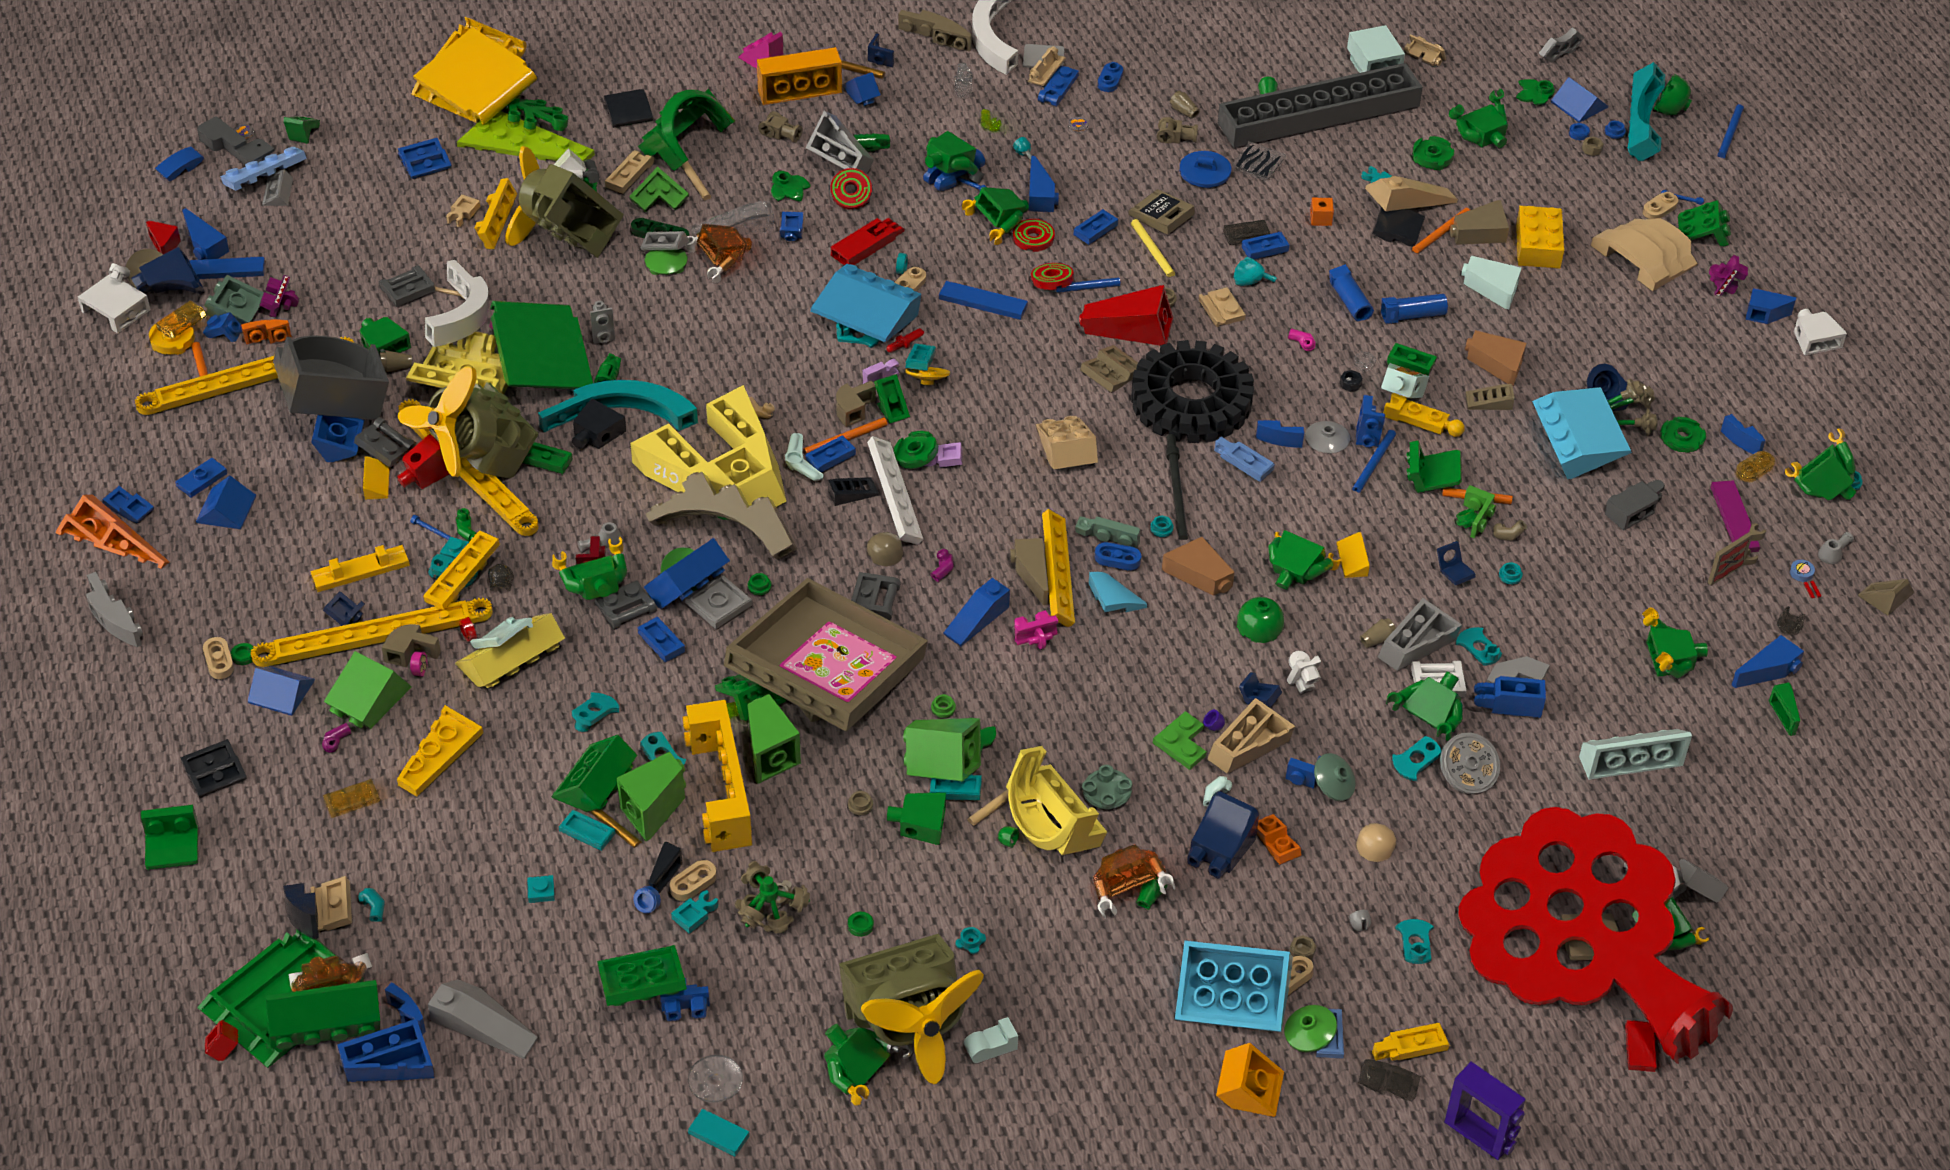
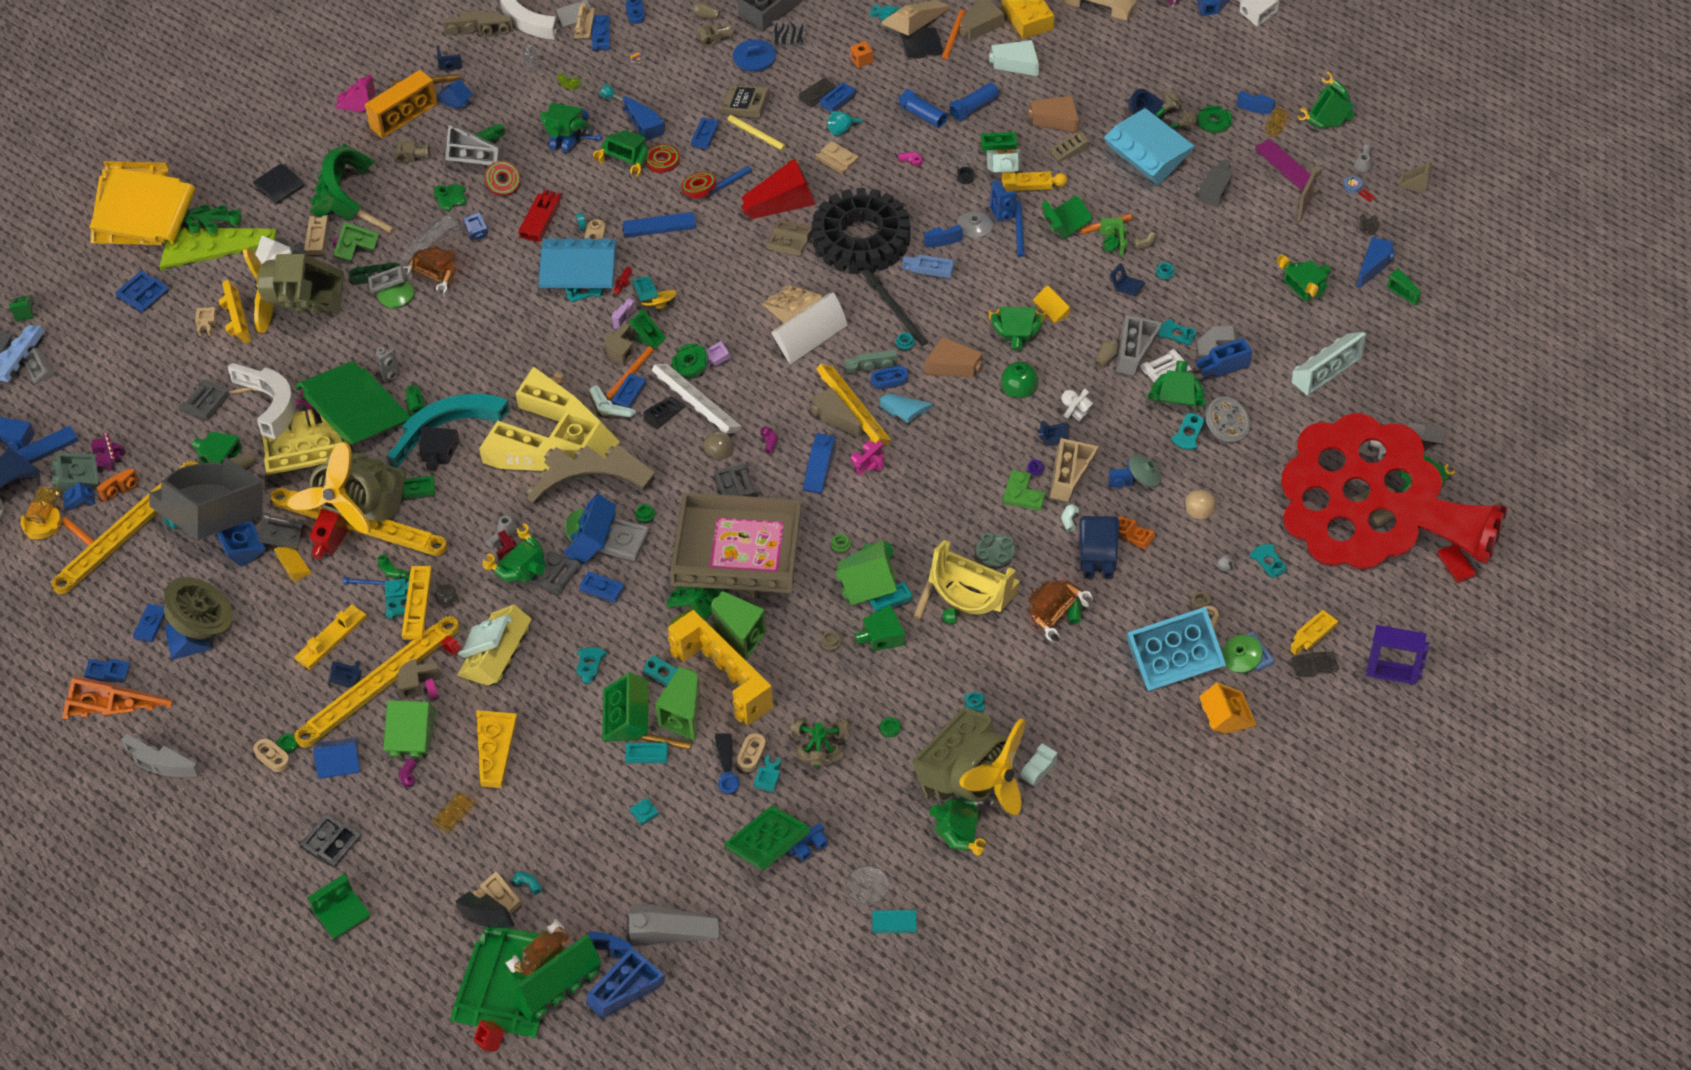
camera: 25 degrees left, 5 degrees up
(245, 480) = (196, 617): none -> olive piece
(1064, 468) = (810, 327): none -> white slope

